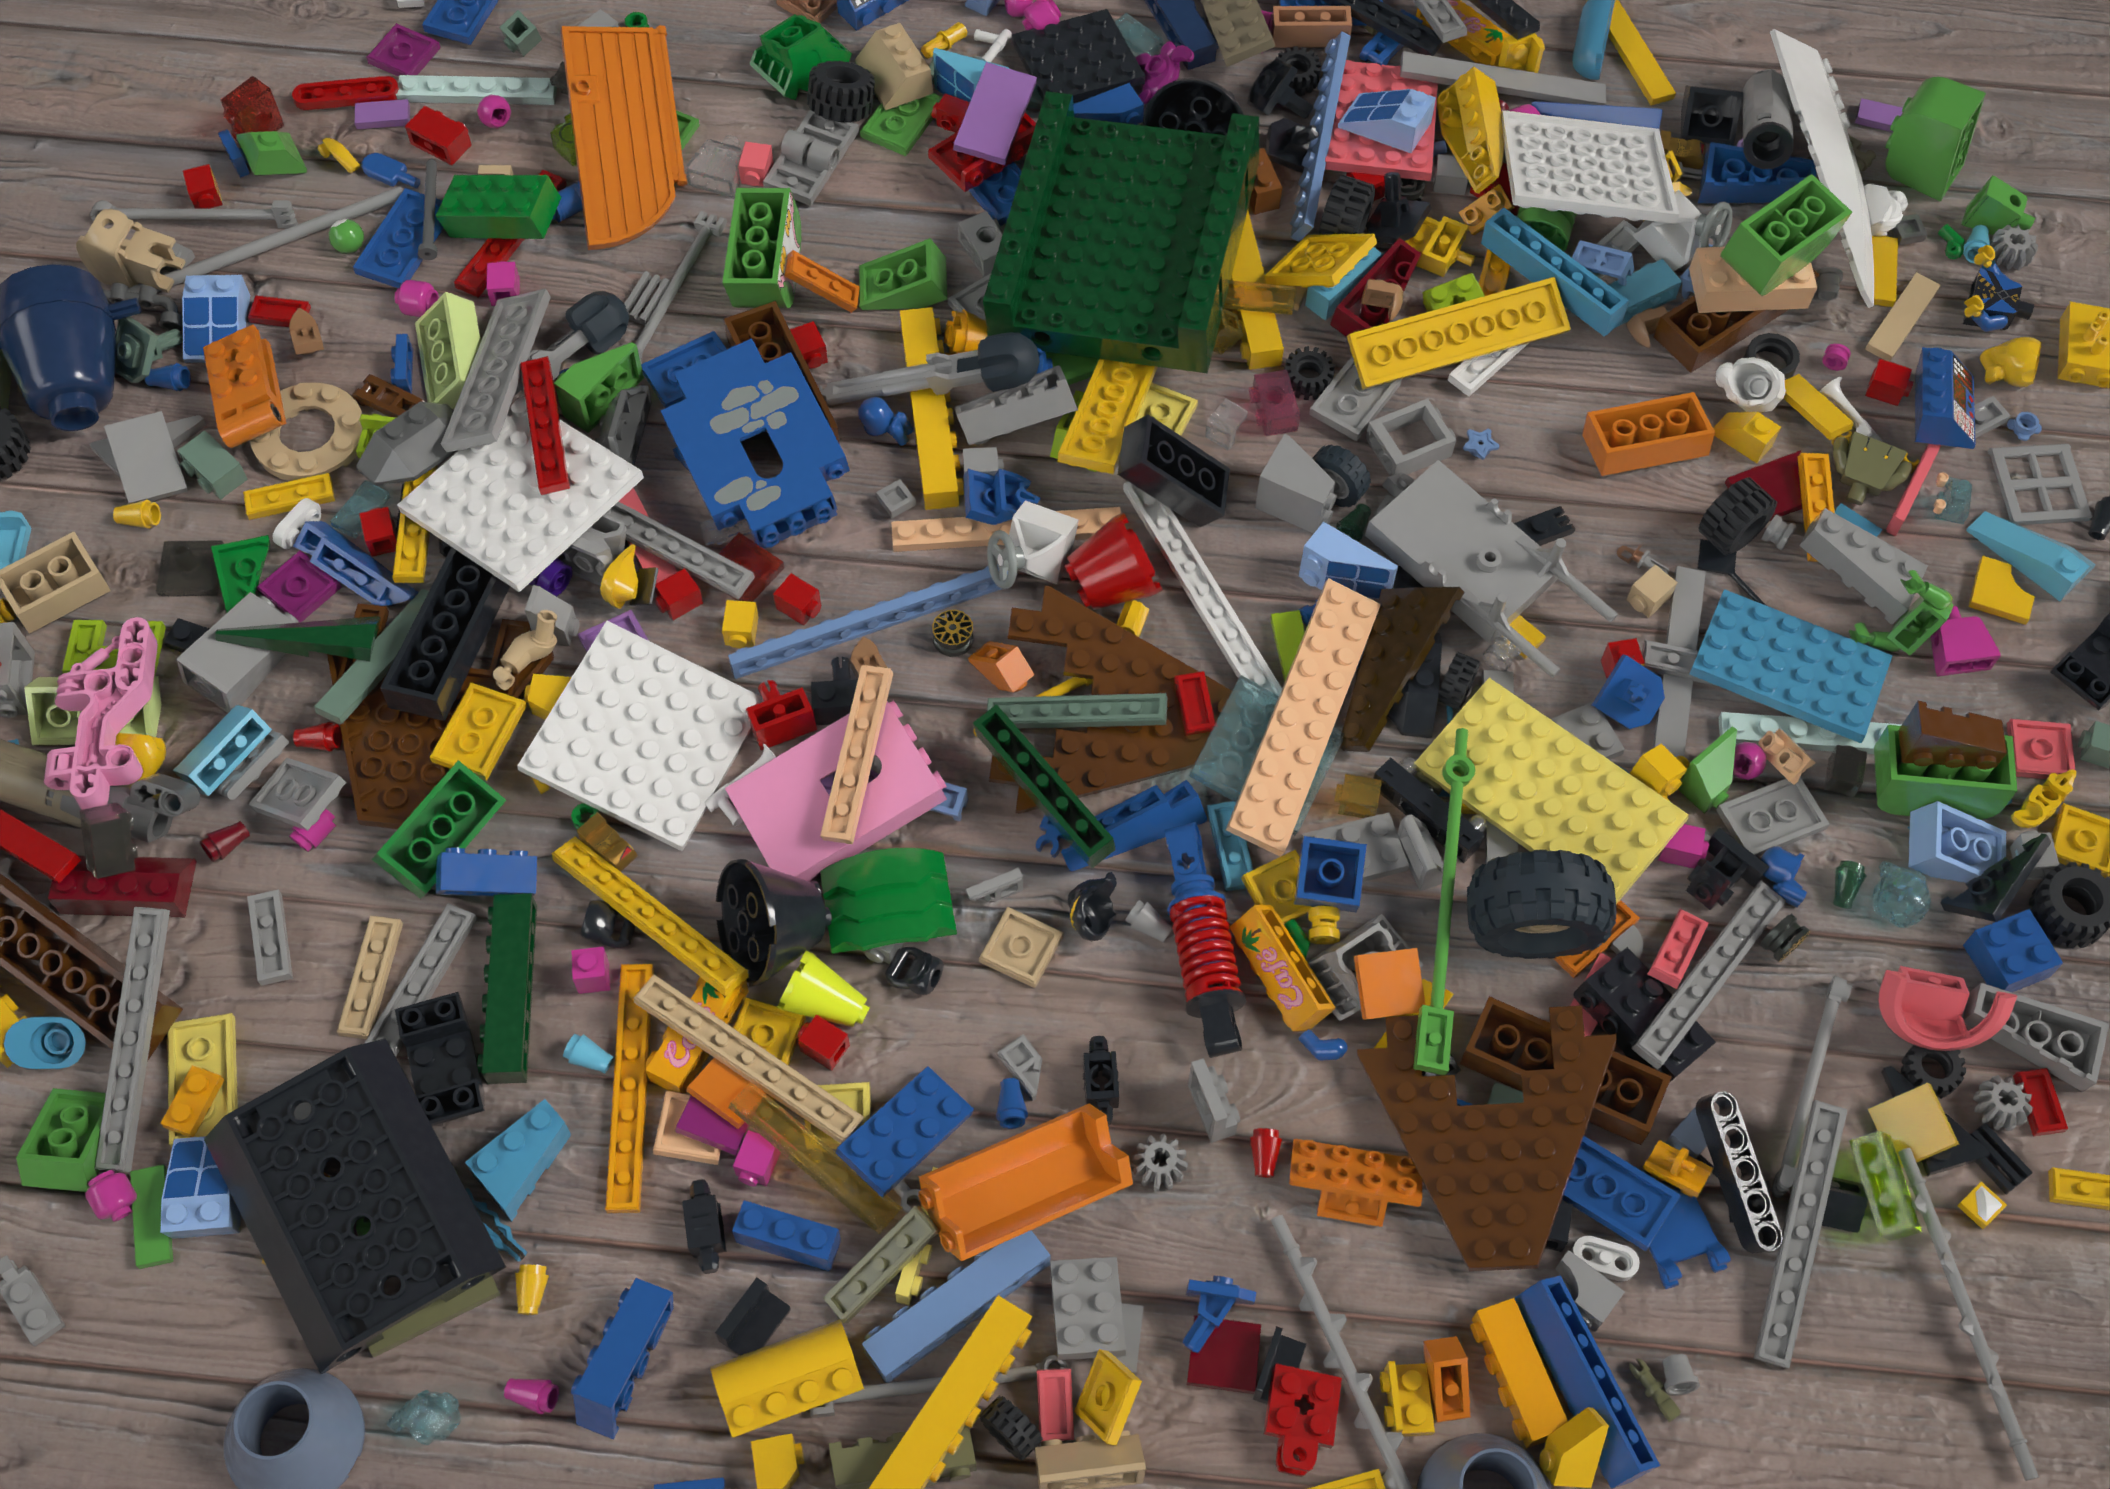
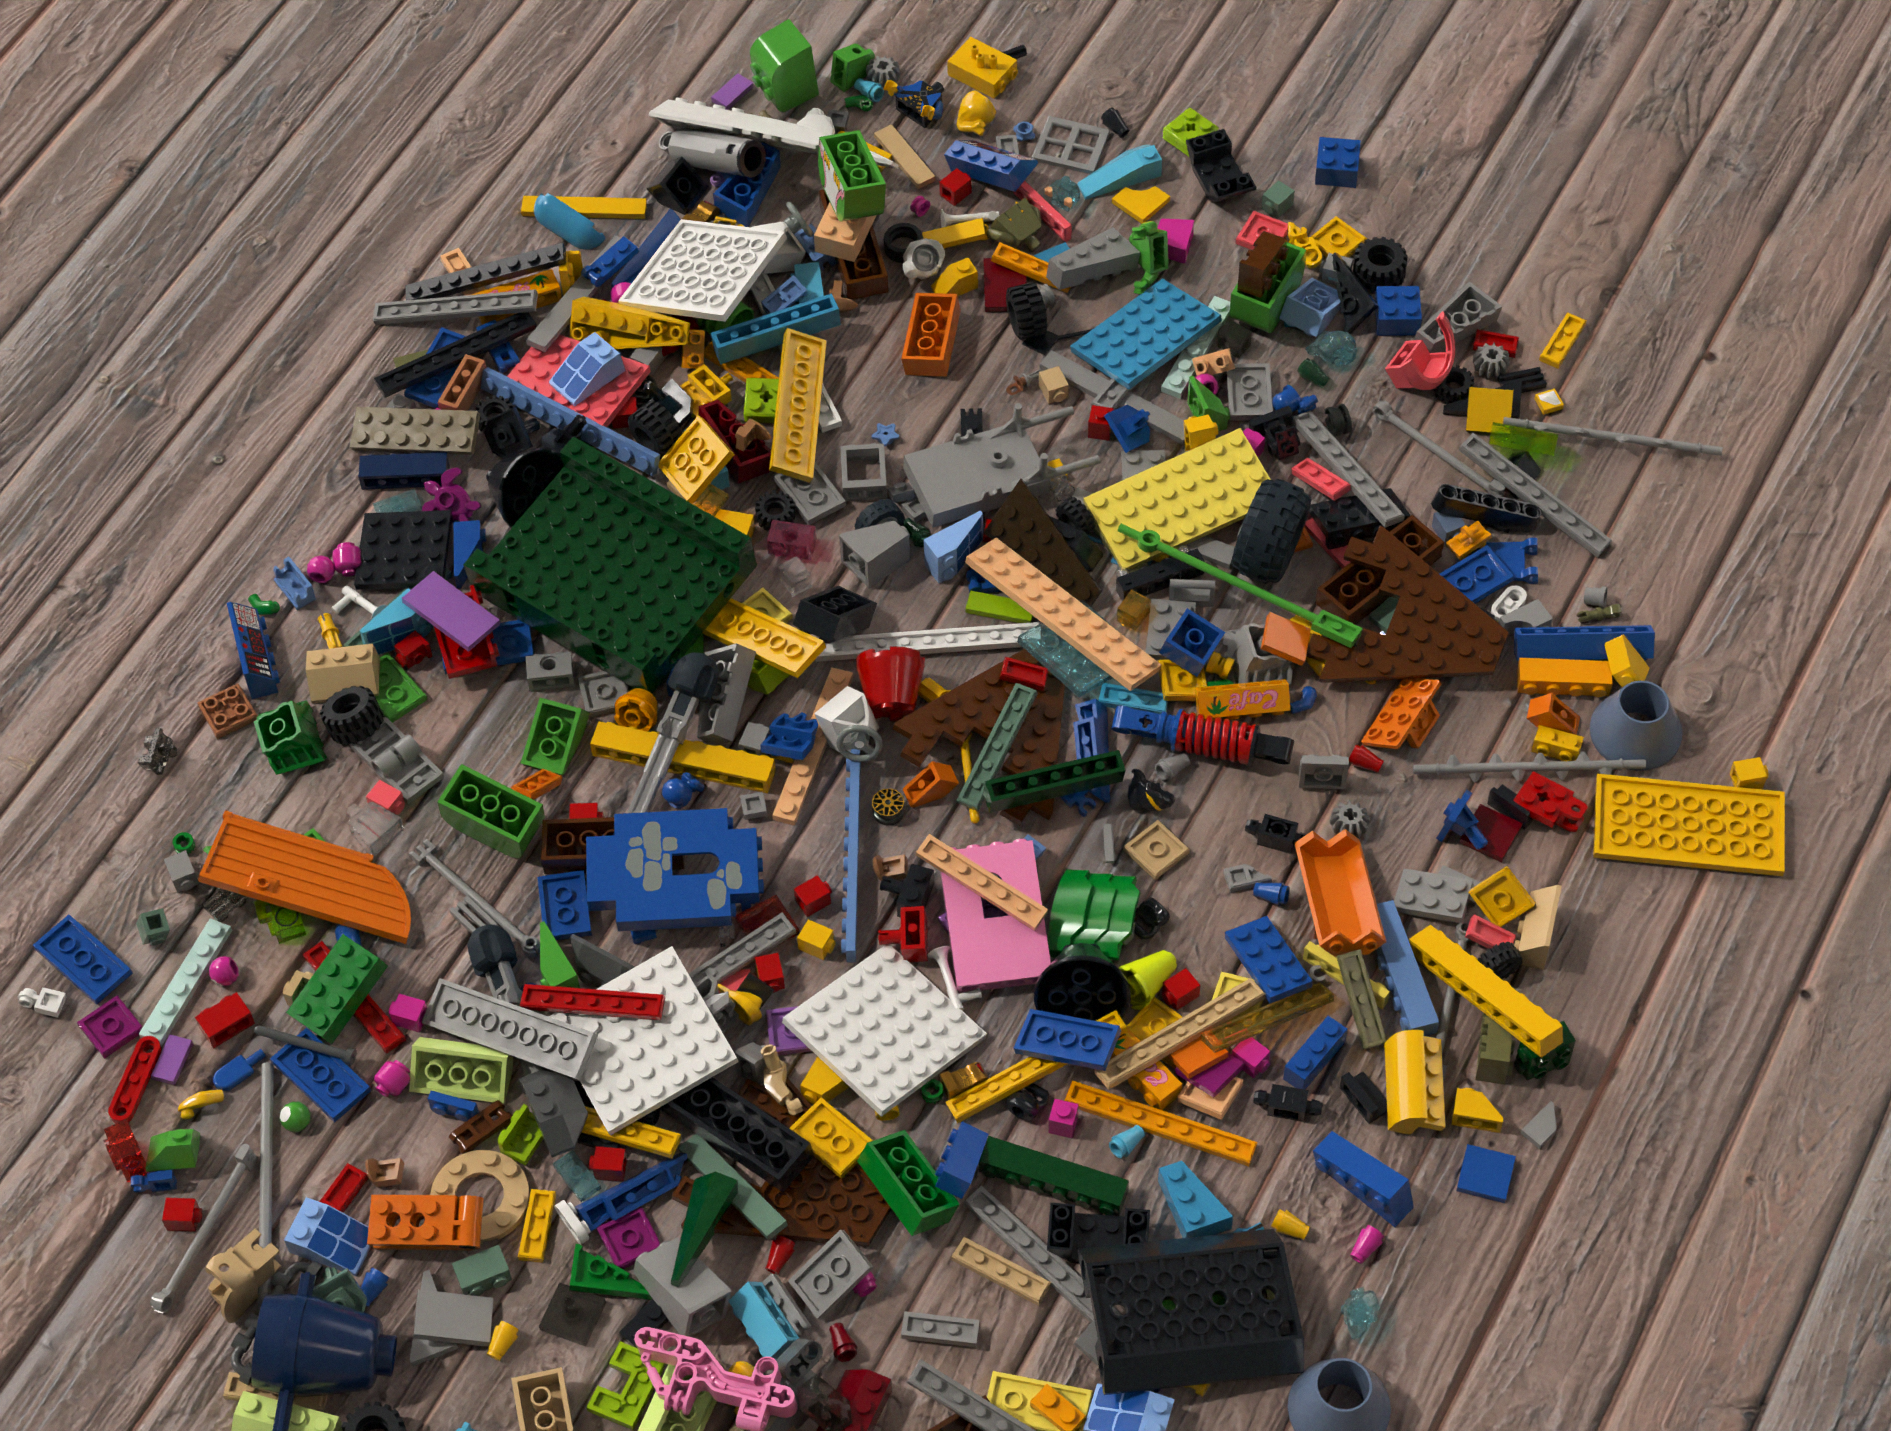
camera: 65 degrees left, 5 degrees down
(681, 929) = (1067, 1039): none -> blue plate
(1556, 86) = (610, 262): none -> blue plate

